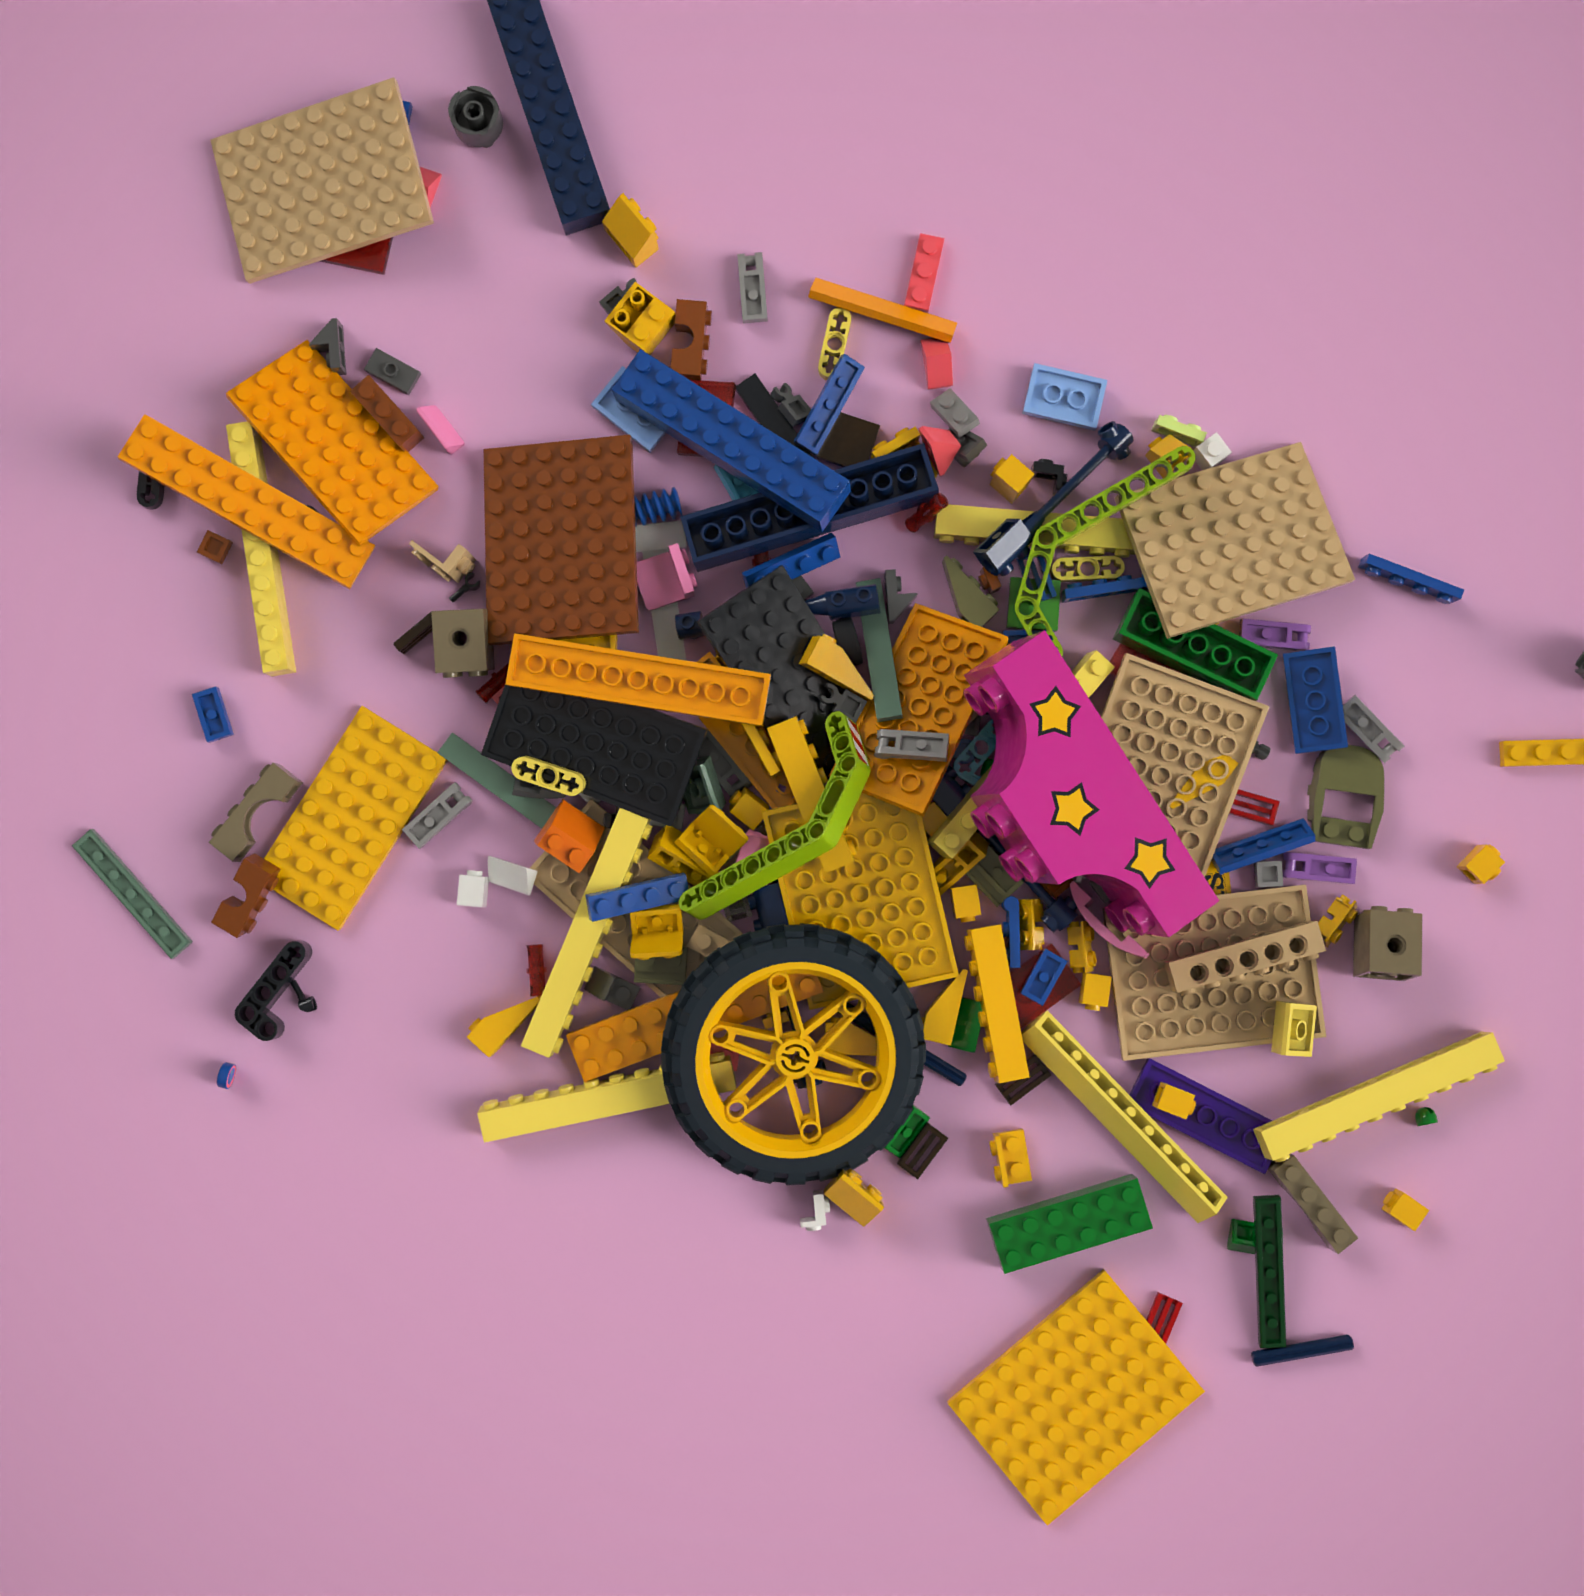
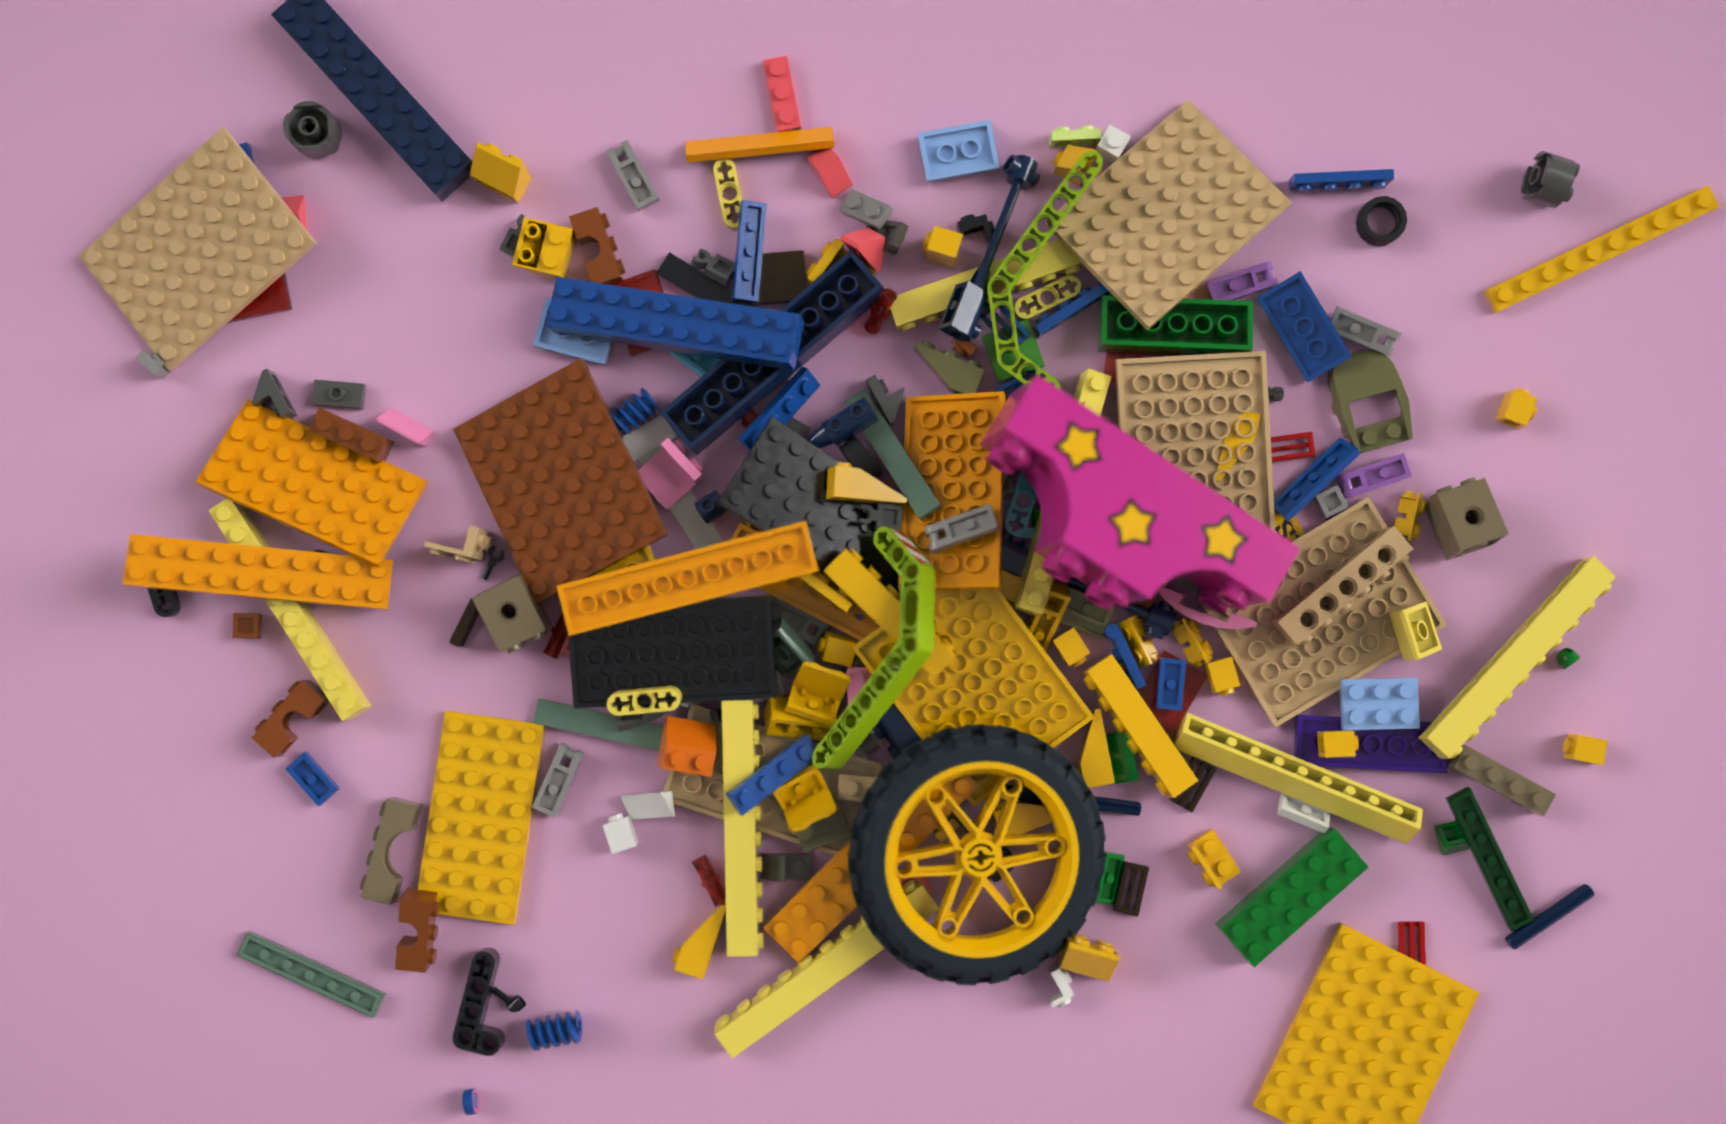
camera: 20 degrees left, 0 degrees up
(197, 656) = (274, 733): none -> dark orange arch
(235, 269) = (153, 363): none -> light grey plate
(332, 1046) = (554, 1032): none -> blue piece
(1114, 1152) = (1303, 813): none -> white plate
(1230, 1081) = (1379, 703): none -> light blue plate
(1449, 625) = (1394, 207): none -> black tyre

